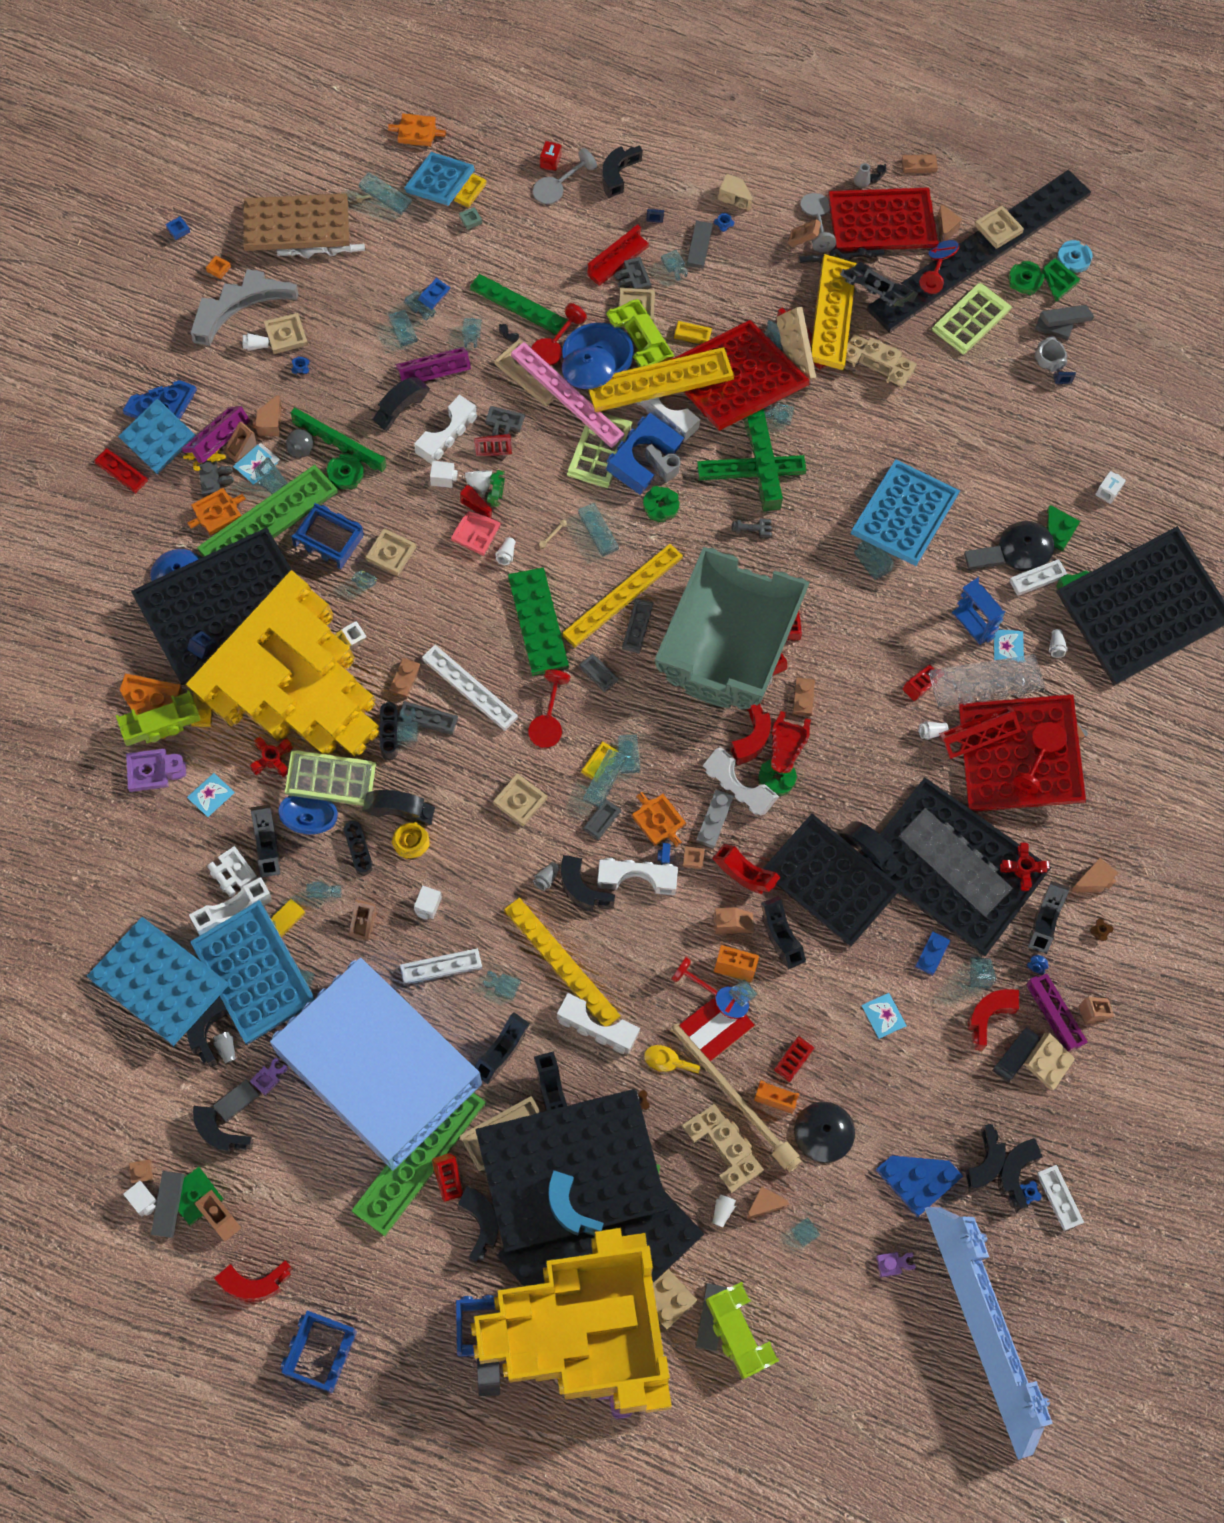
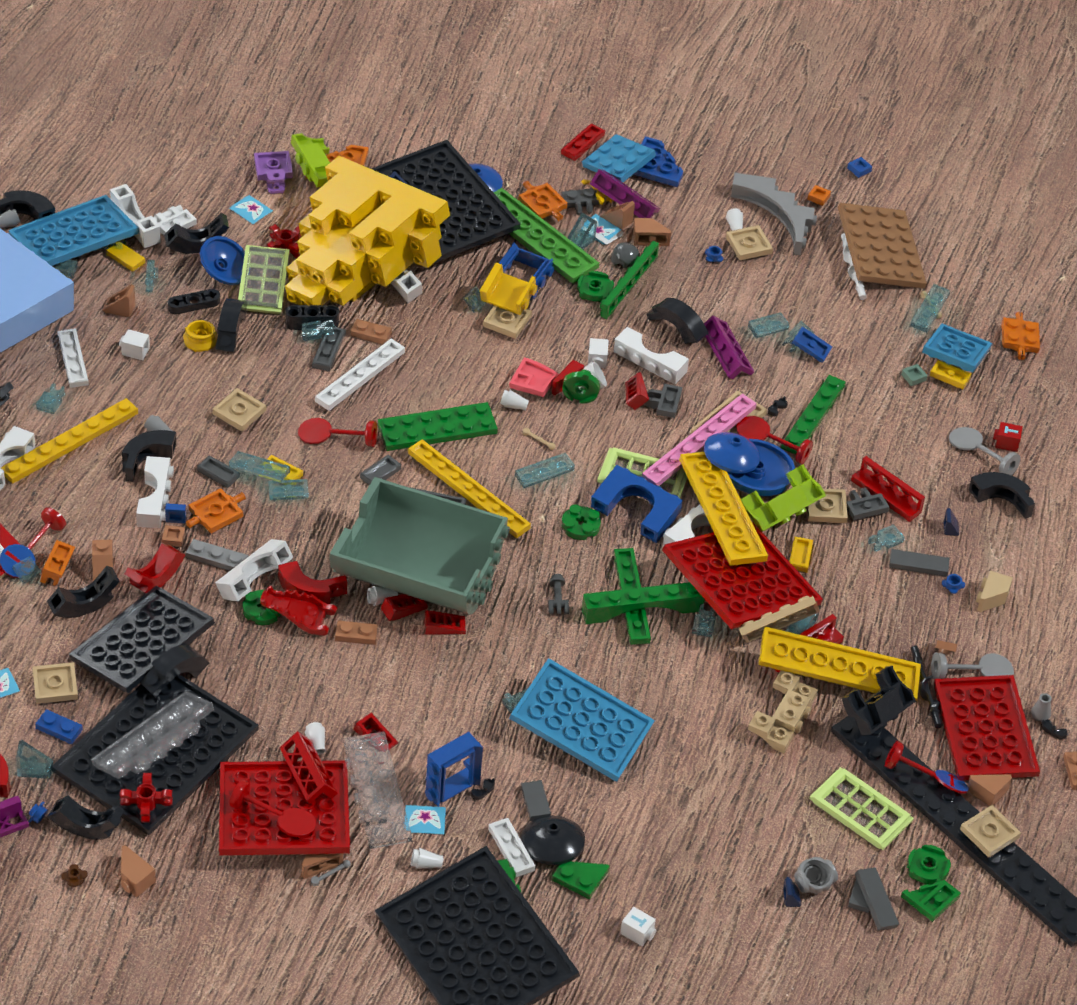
camera: 90 degrees right, 20 degrees down
(157, 981) = (69, 174): dark azure plate -> none
(364, 542) = (507, 290): none -> yellow panel
(471, 330) = (773, 375): clear light blue plate -> none
(661, 463) = (624, 523): light grey plate -> none
(884, 958) = (55, 683): none -> tan plate
(1082, 252) = (965, 927): medium azure plate -> none

